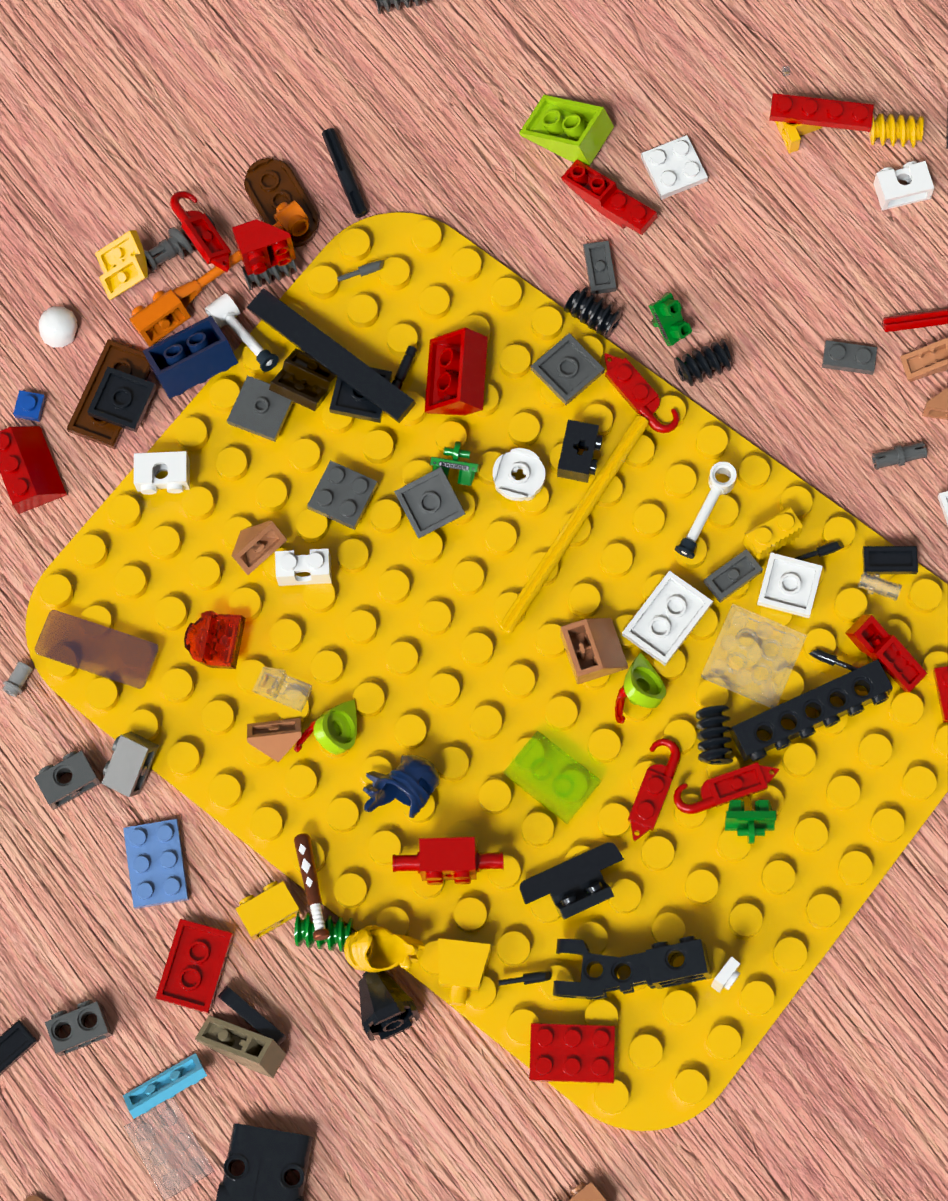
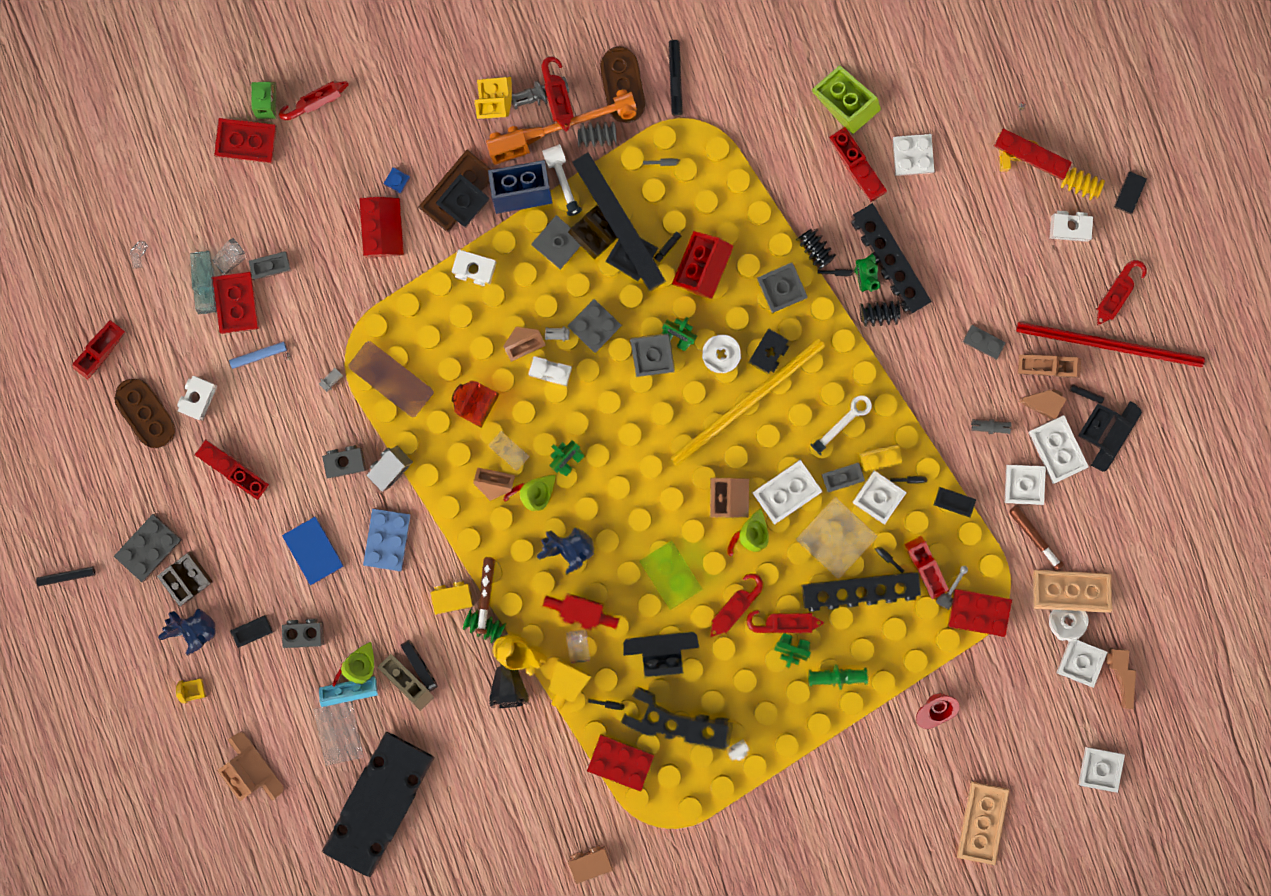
camera: 20 degrees right, 15 degrees up
(57, 326) = (434, 126): white hair -> none
(59, 912) = (313, 550): none -> blue tile
(167, 1044) = (358, 665): none -> lime piece
(194, 966) = (391, 618): red plate -> none
(262, 246) = (595, 125): red slope -> none
(297, 519) = (557, 333): none -> light grey pin
(365, 659) = (563, 454): none -> green hips
(460, 911) = (578, 646): none -> clear slope
(599, 267) = (832, 215): dark grey plate -> none
(632, 334) = (838, 272): none -> black piece
(637, 392) = (825, 321): red plate -> none
(689, 282) = (870, 215): none -> black brick
(713, 735) = (789, 585): black piece -> none
(824, 833) = (837, 677): none -> green piece
(875, 584) = (937, 516): clear pin -> none
(927, 687) = (945, 599): none -> hinge

